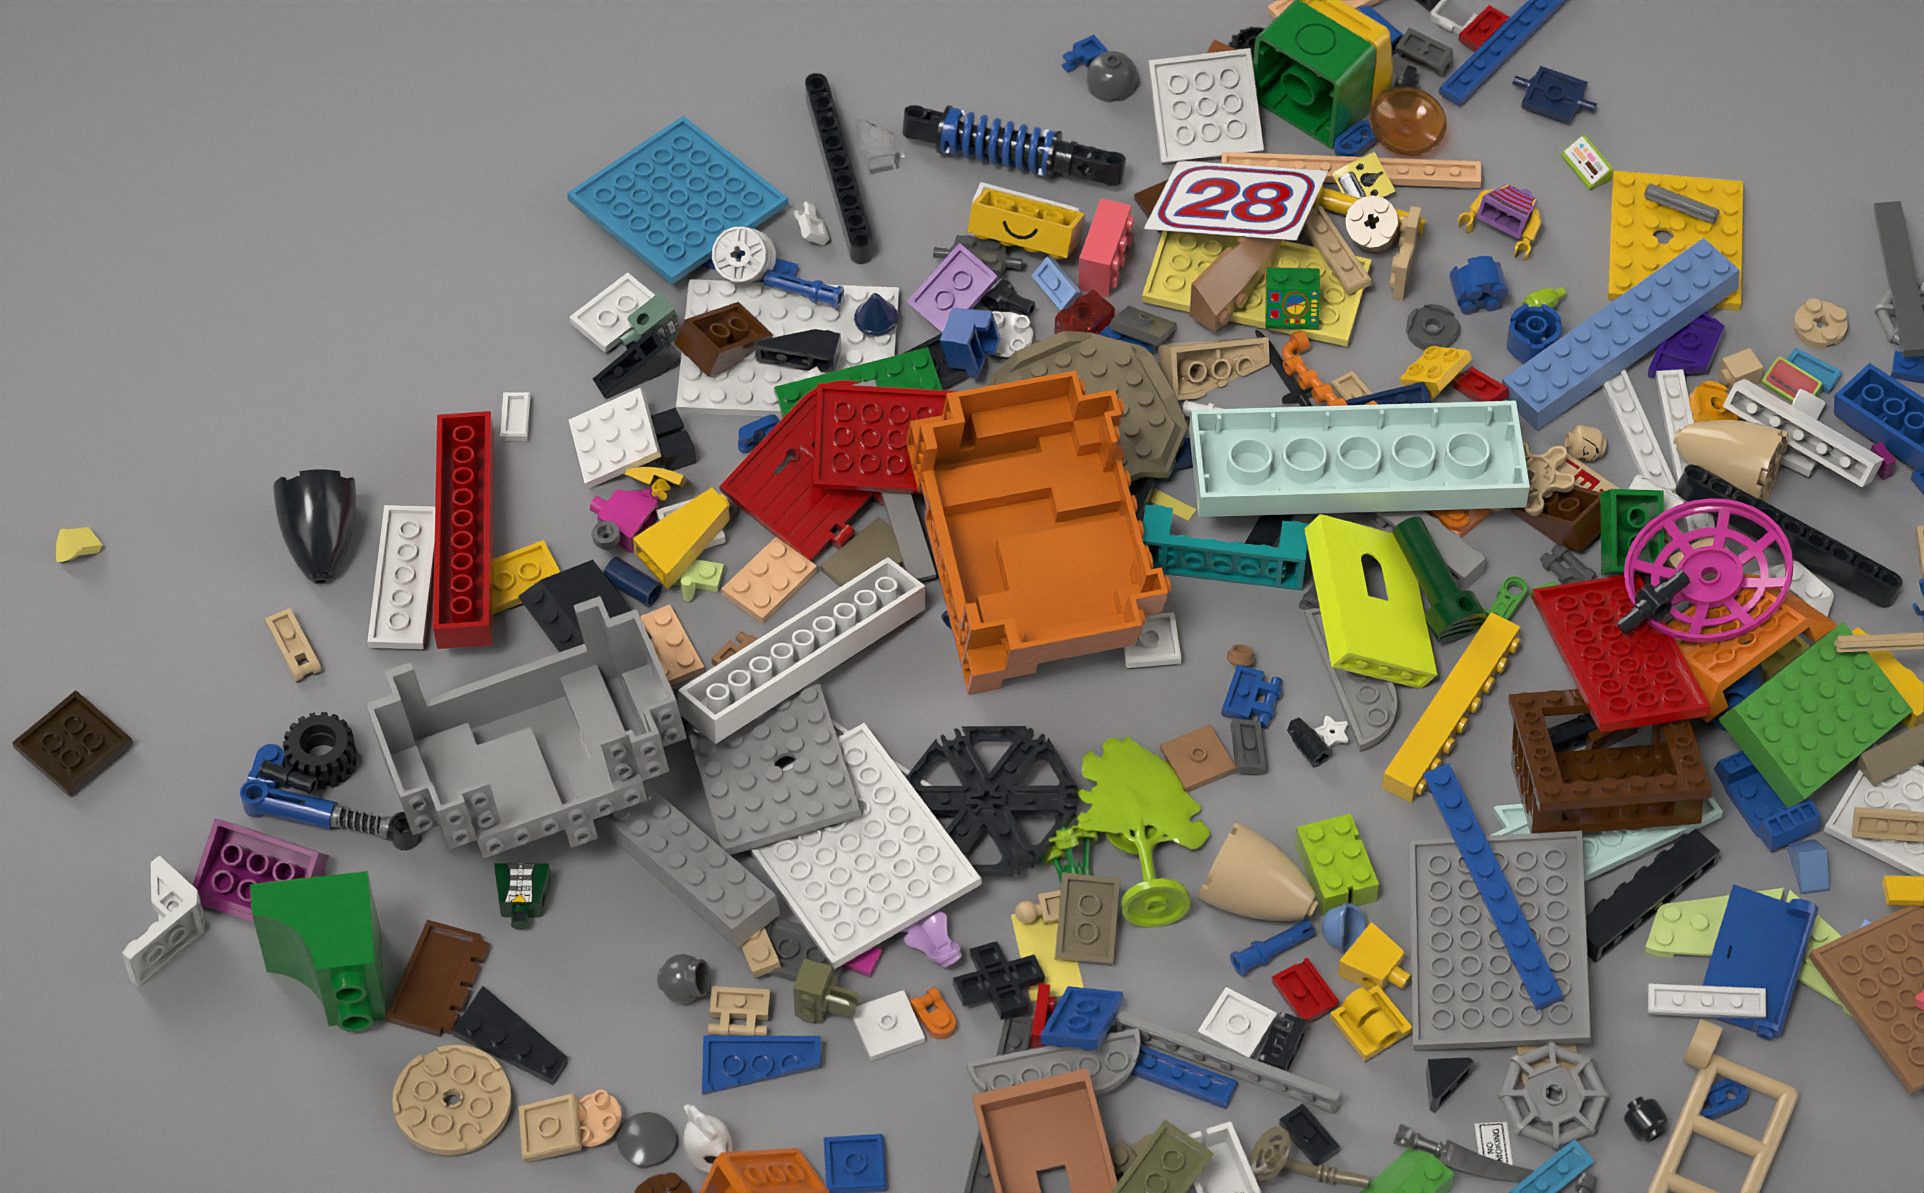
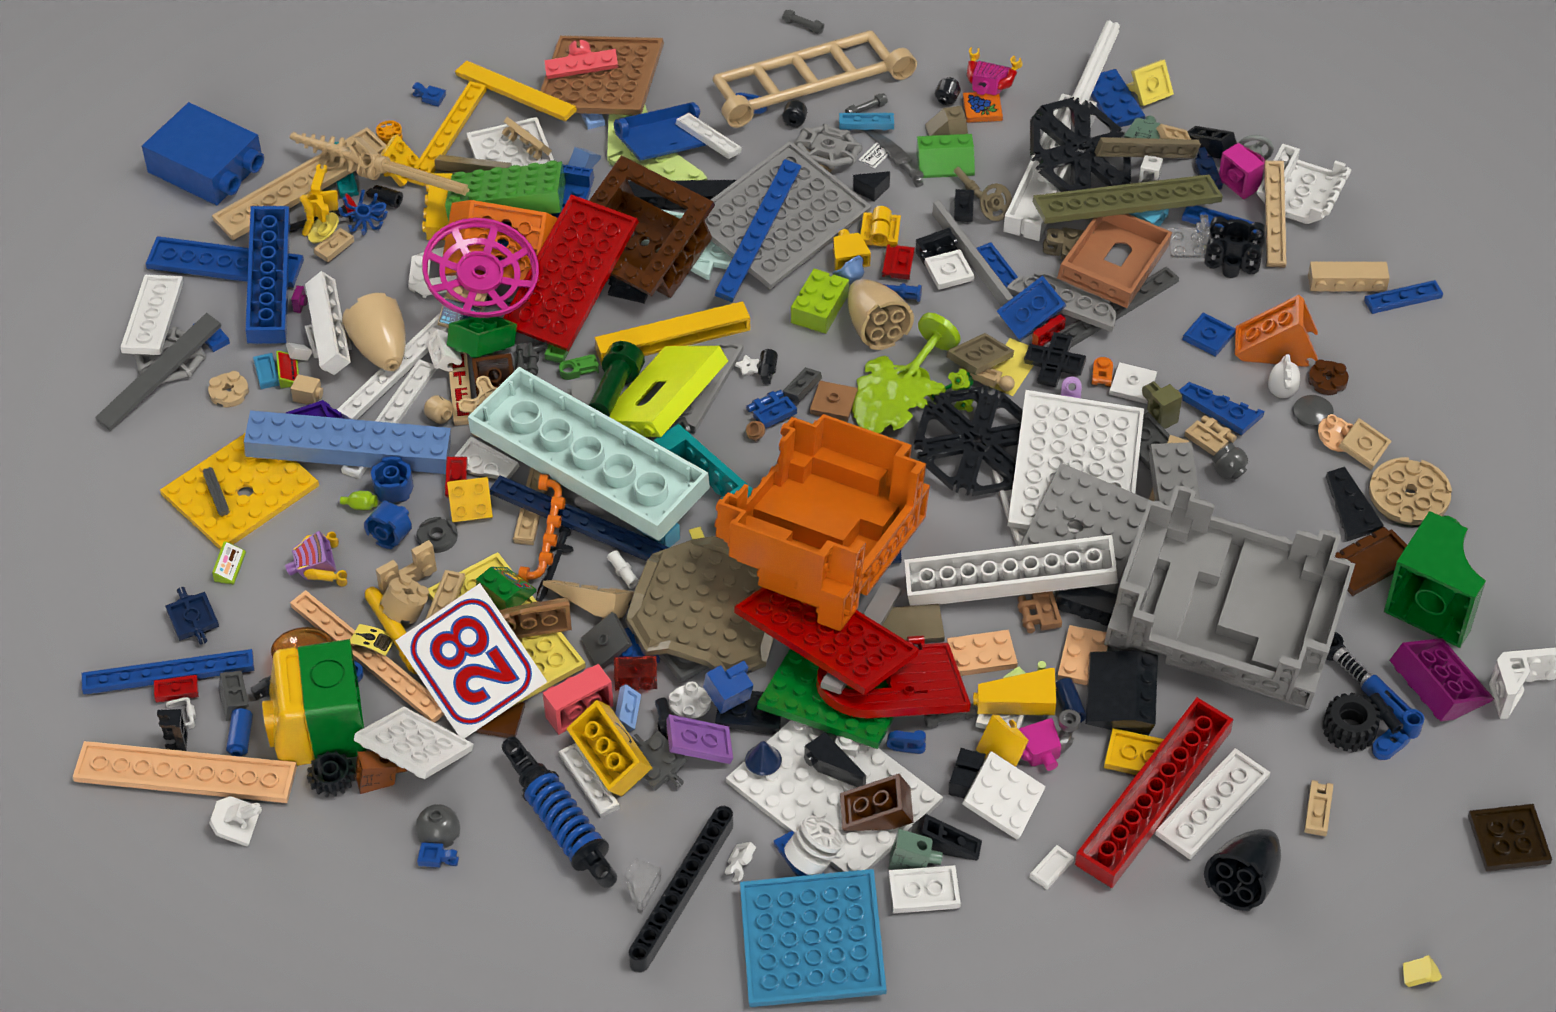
camera: 140 degrees left, 5 degrees down
(815, 291) = (787, 799): blue pin -> none
(1653, 602) = (530, 268): black pin -> none
(1701, 399) = (347, 380): light orange plate -> none
(1806, 543) = (401, 288): black beam -> none

